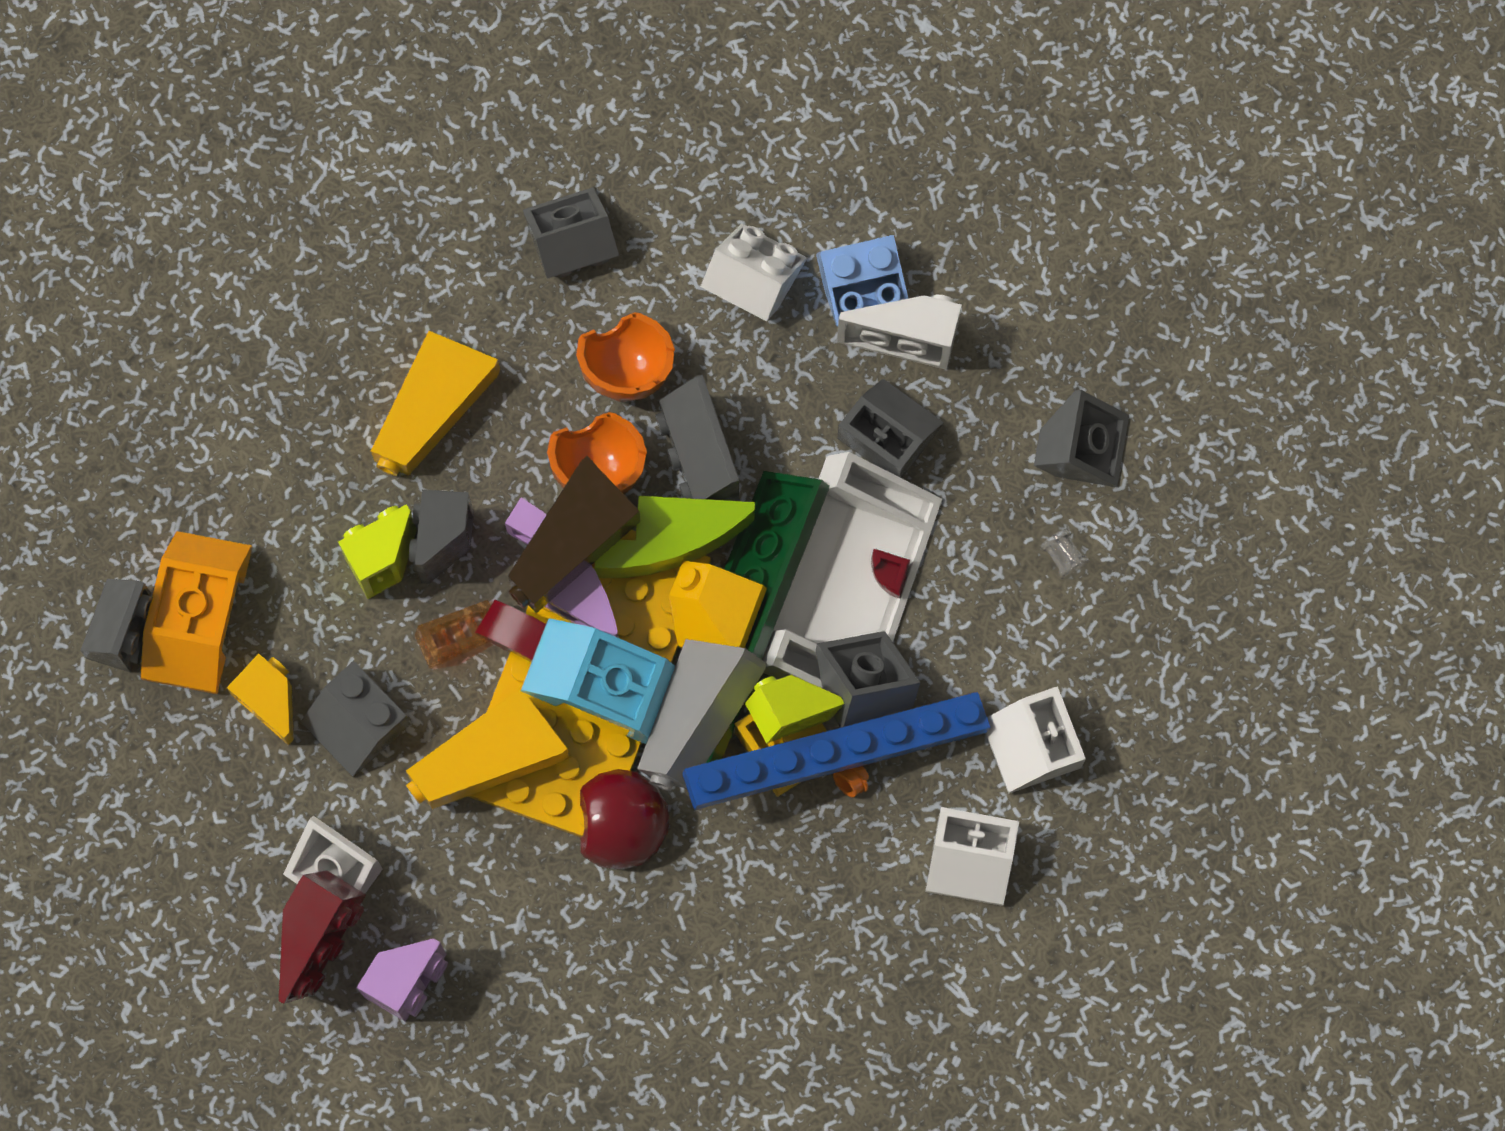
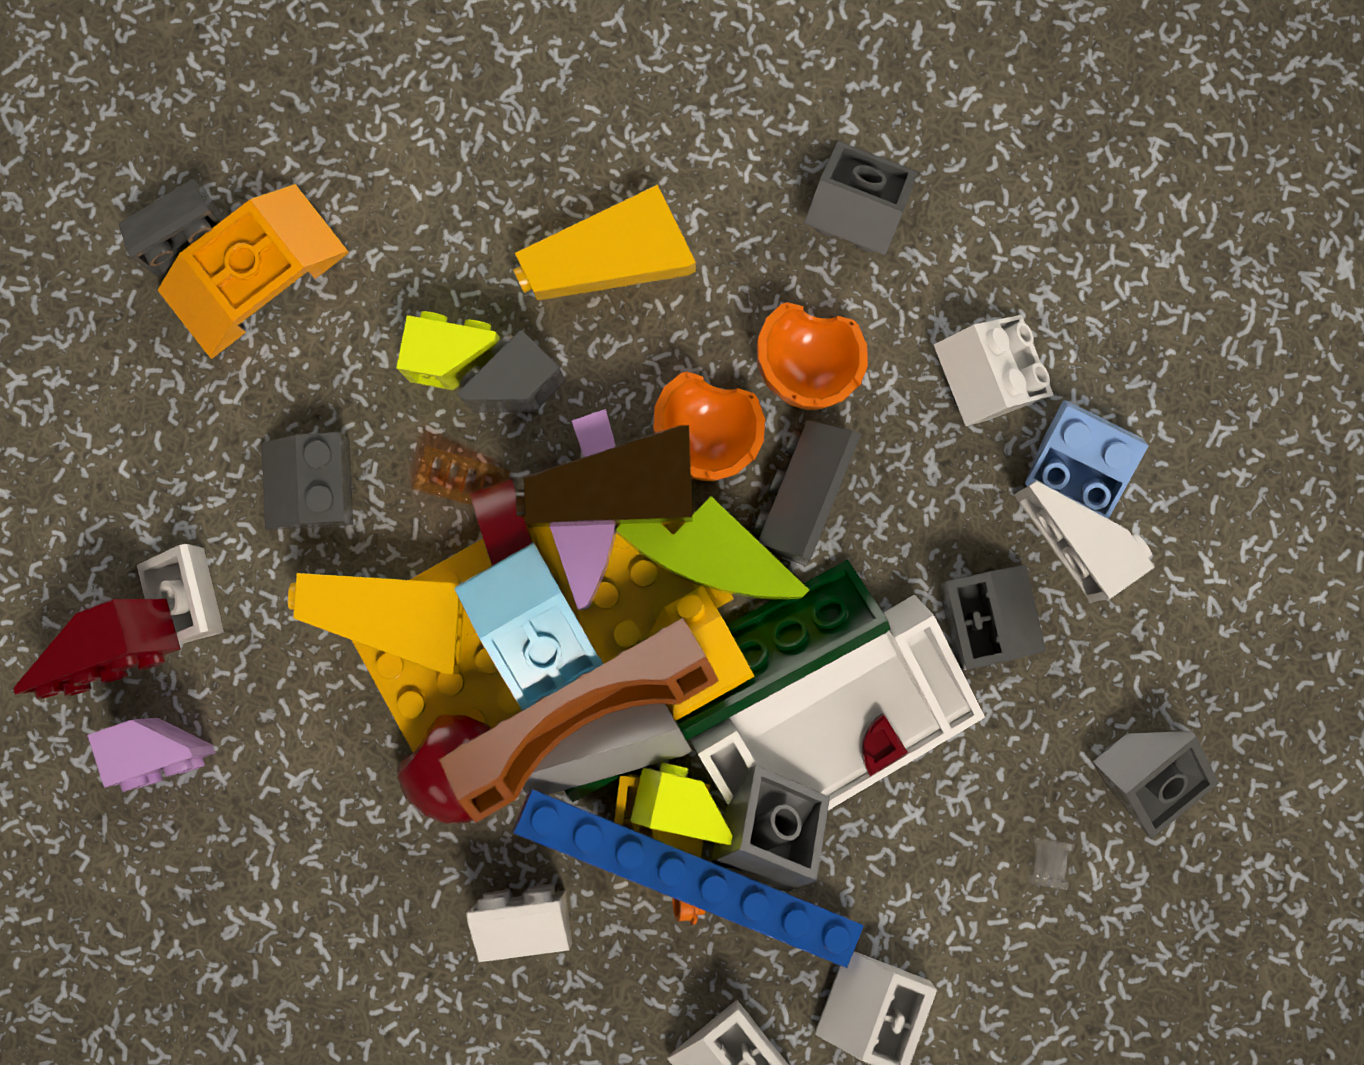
camera: 45 degrees right, 10 degrees up
(266, 695) = (248, 398): yellow slope -> none
(648, 770) = (499, 762): none -> dark orange arch
(752, 880) = (520, 925): none -> white slope

